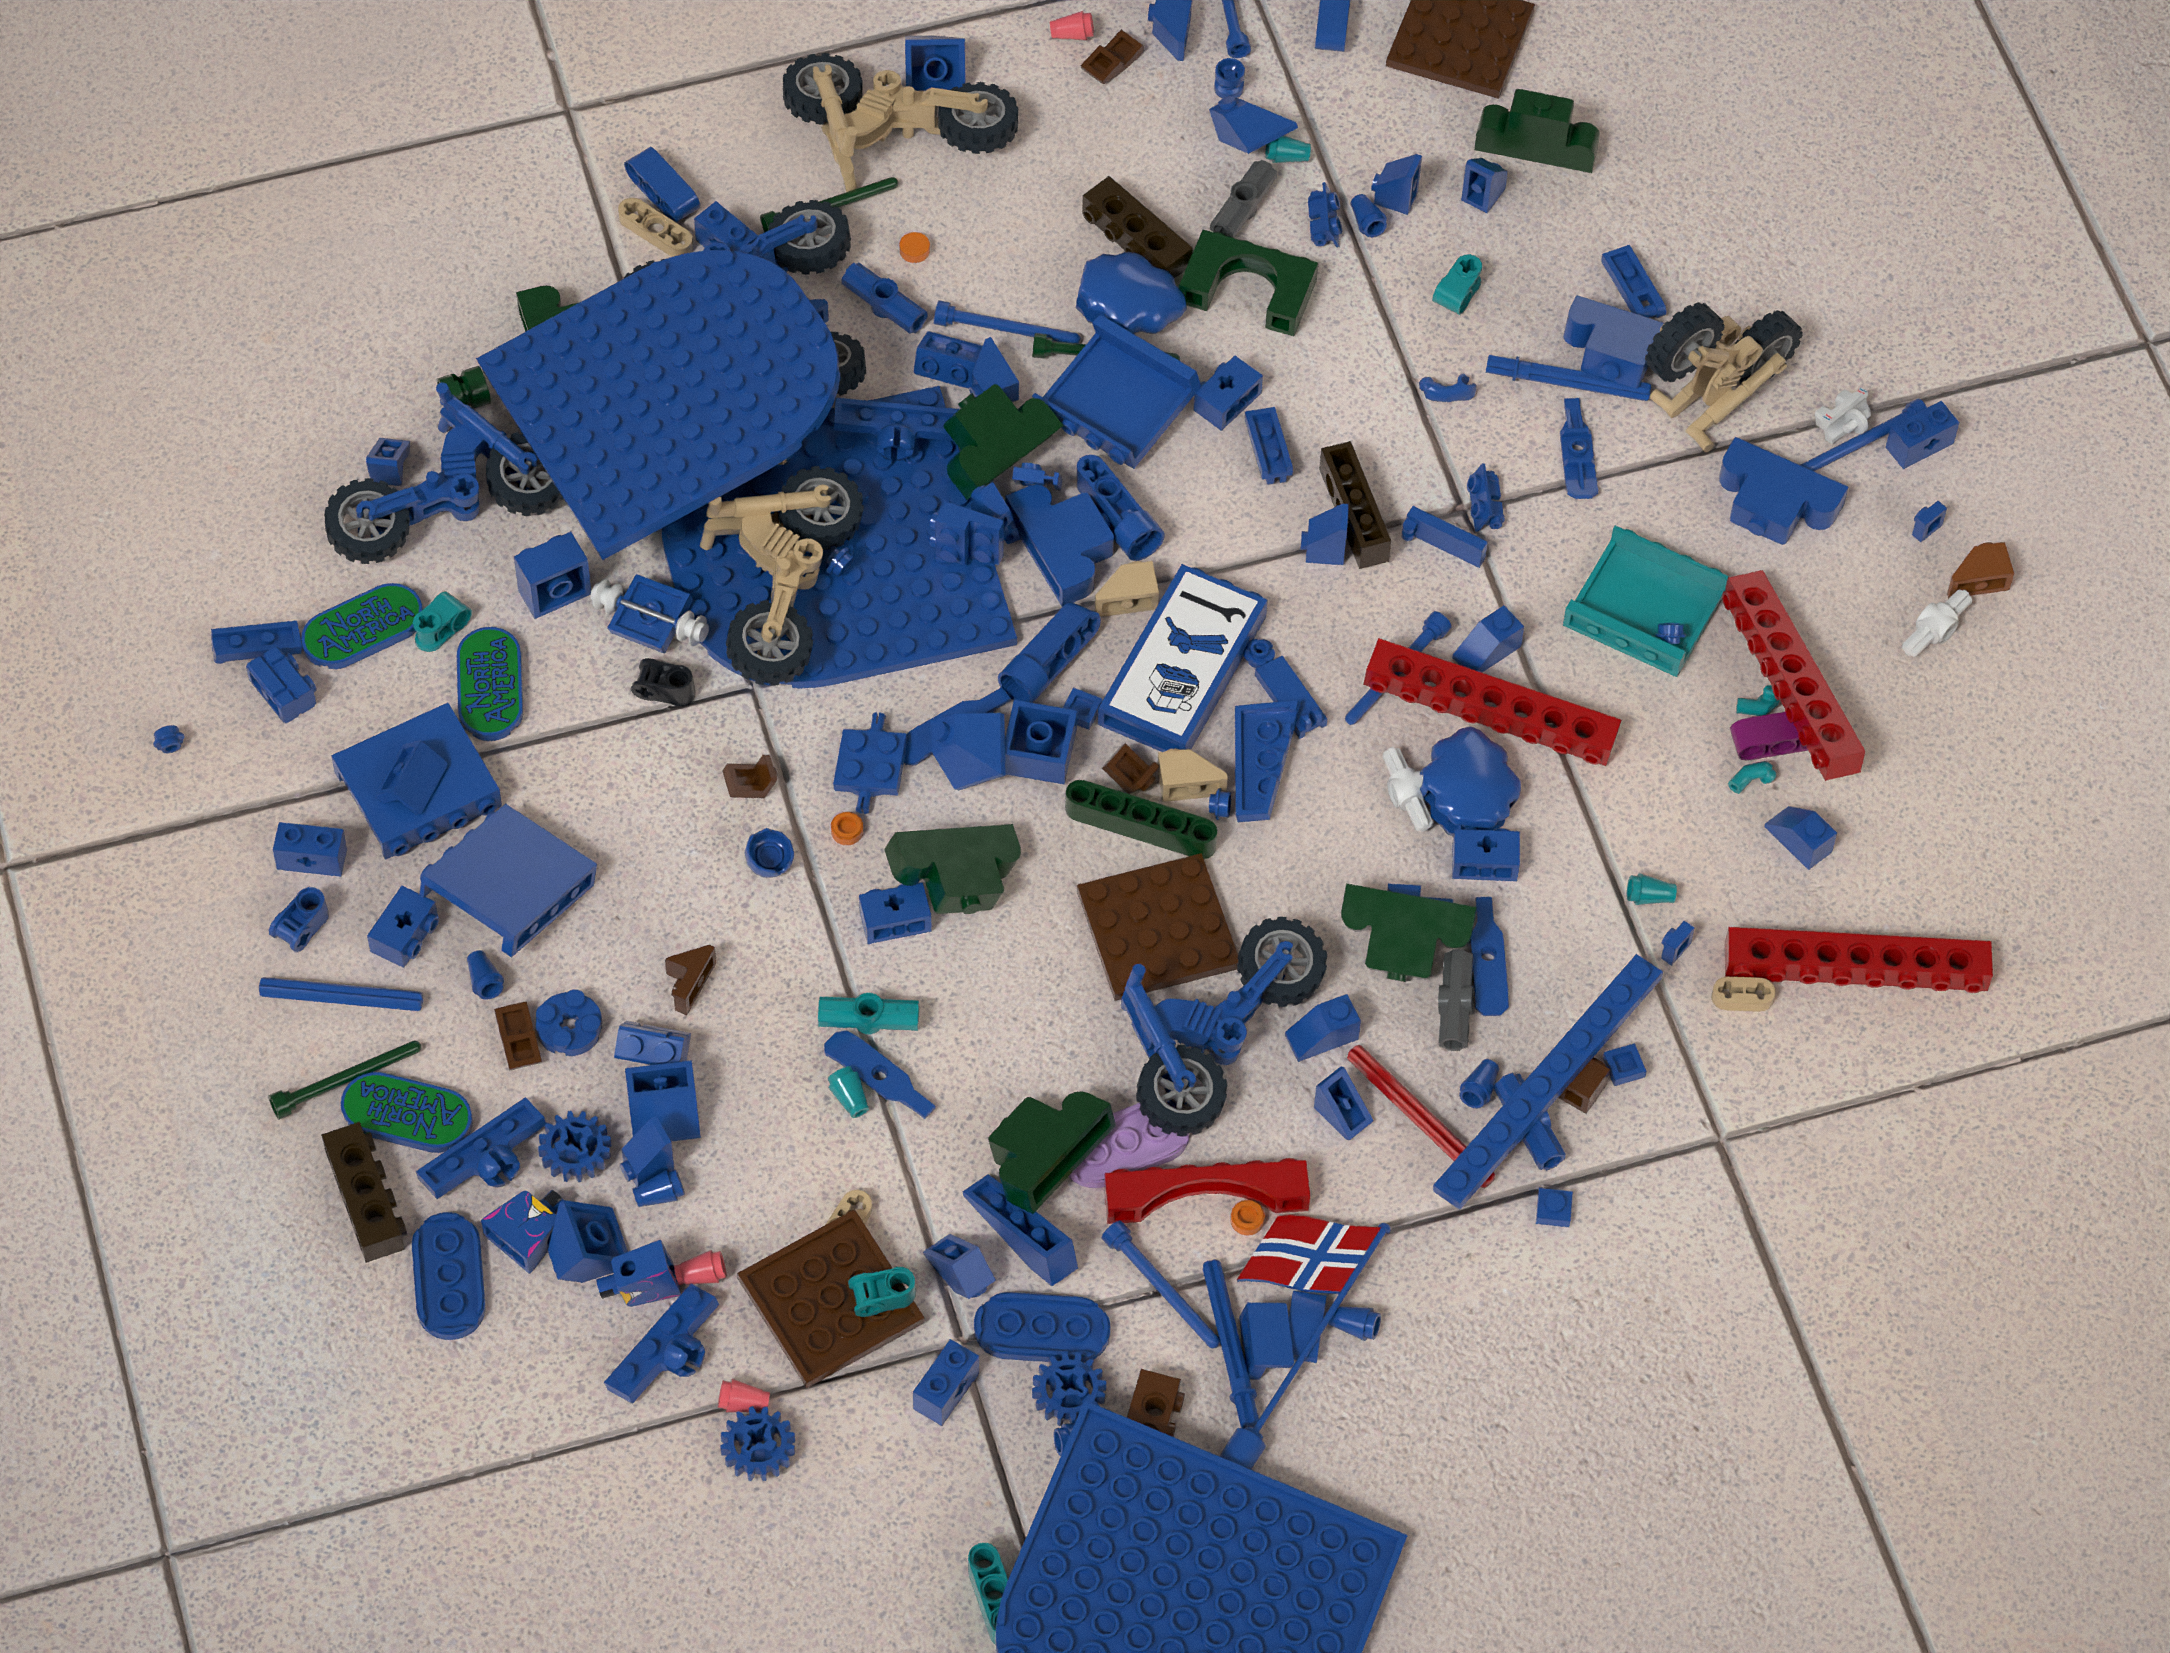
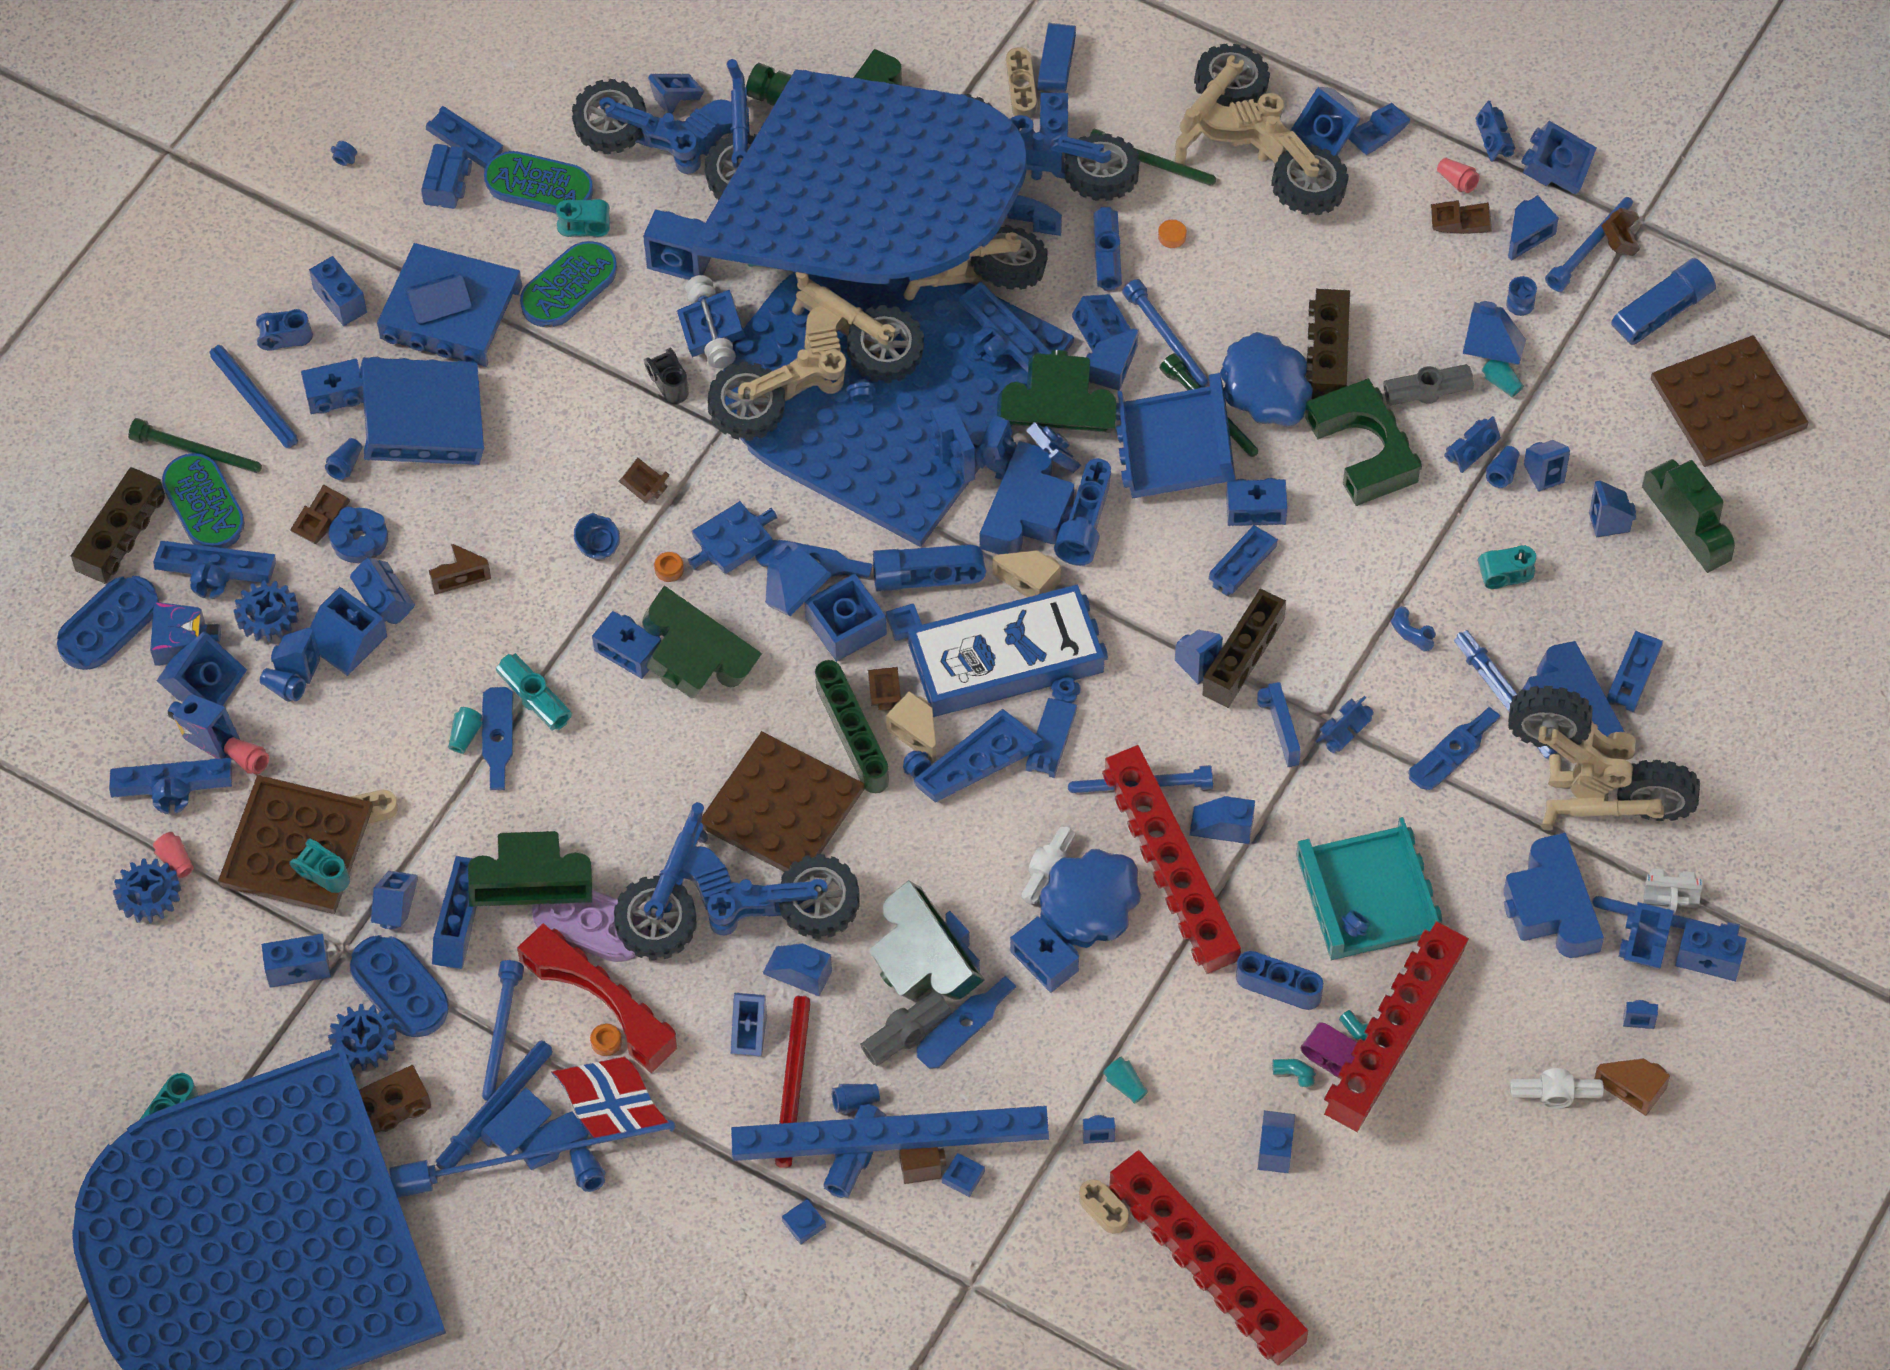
camera: 50 degrees right, 0 degrees up
(974, 30) = (1381, 128): none -> blue slope
(1658, 732) = (1269, 968): none -> blue beam
(1868, 462) = (1648, 935): none -> blue cylinder

